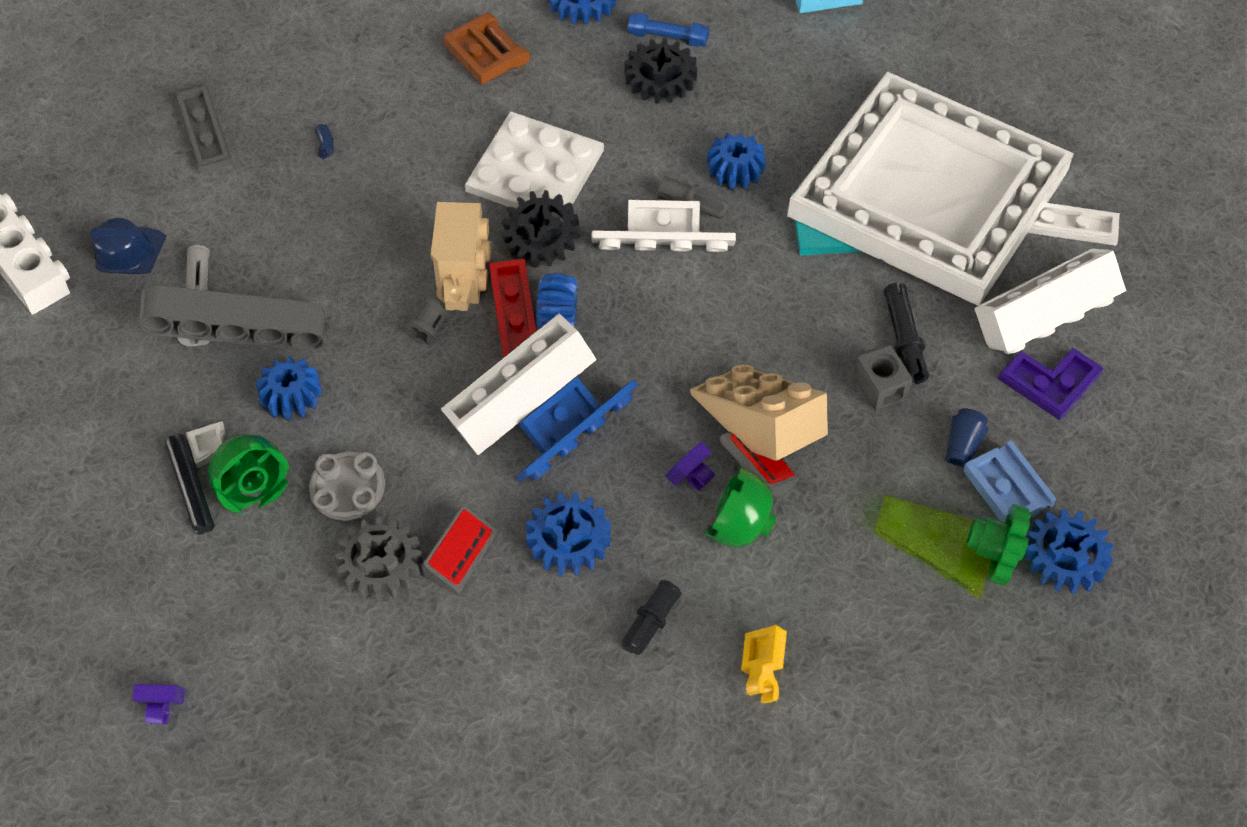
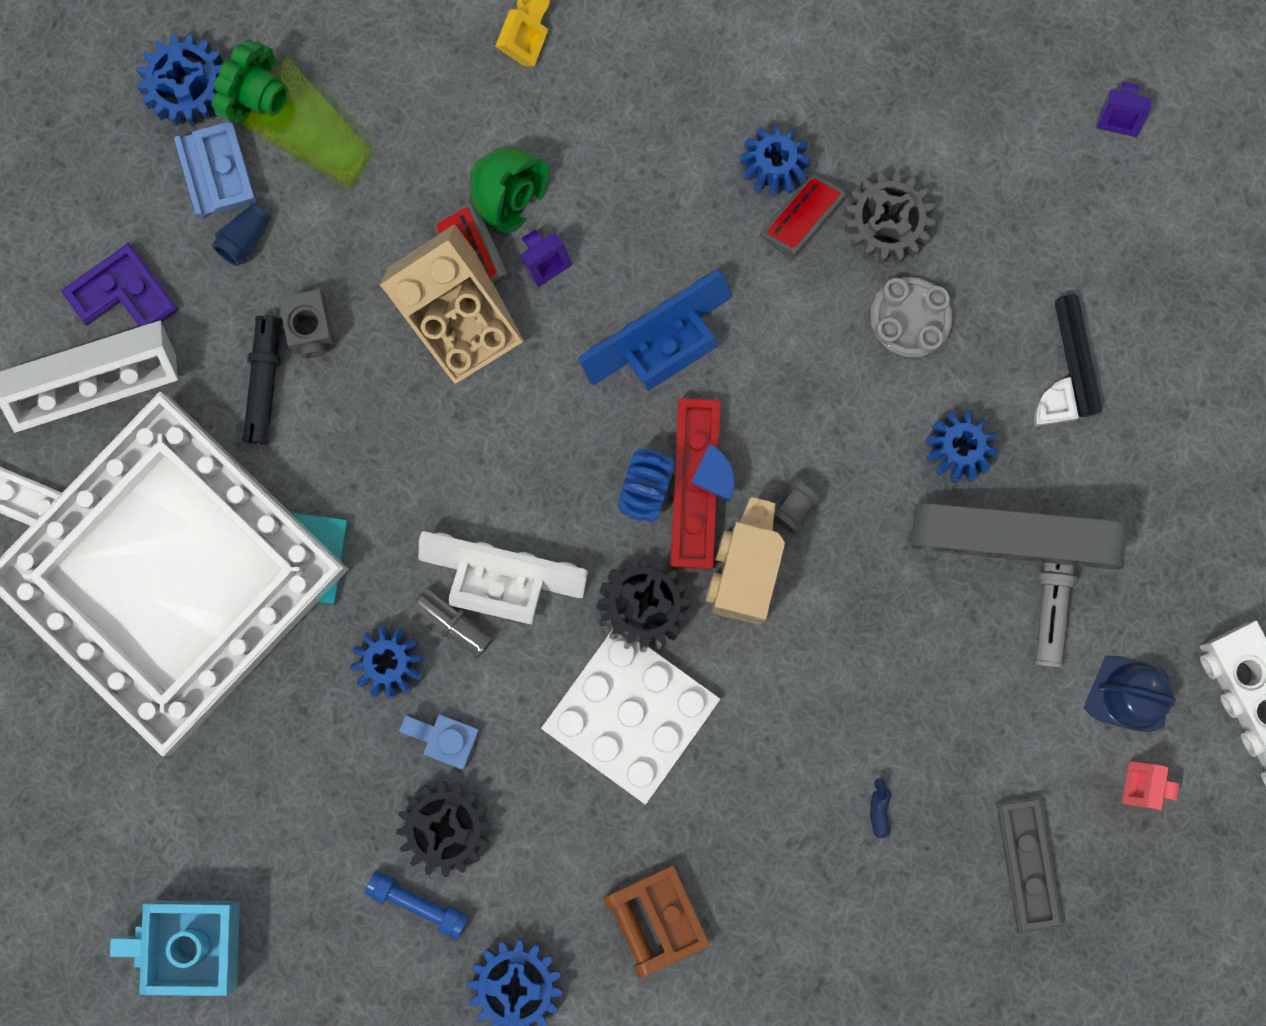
camera: 170 degrees left, 25 degrees up
(111, 184) = (1148, 786): none -> coral tile
(247, 465) = (1019, 344): green cylinder -> none
(486, 600) = (789, 154): none -> blue gear
(500, 321) = (715, 474): none -> blue tile
(520, 386) = (710, 374): white brick -> none
(582, 544) = (674, 198): blue gear -> none
(651, 617) = (624, 100): black axle -> none
(677, 127) = (447, 739): none -> medium blue plate

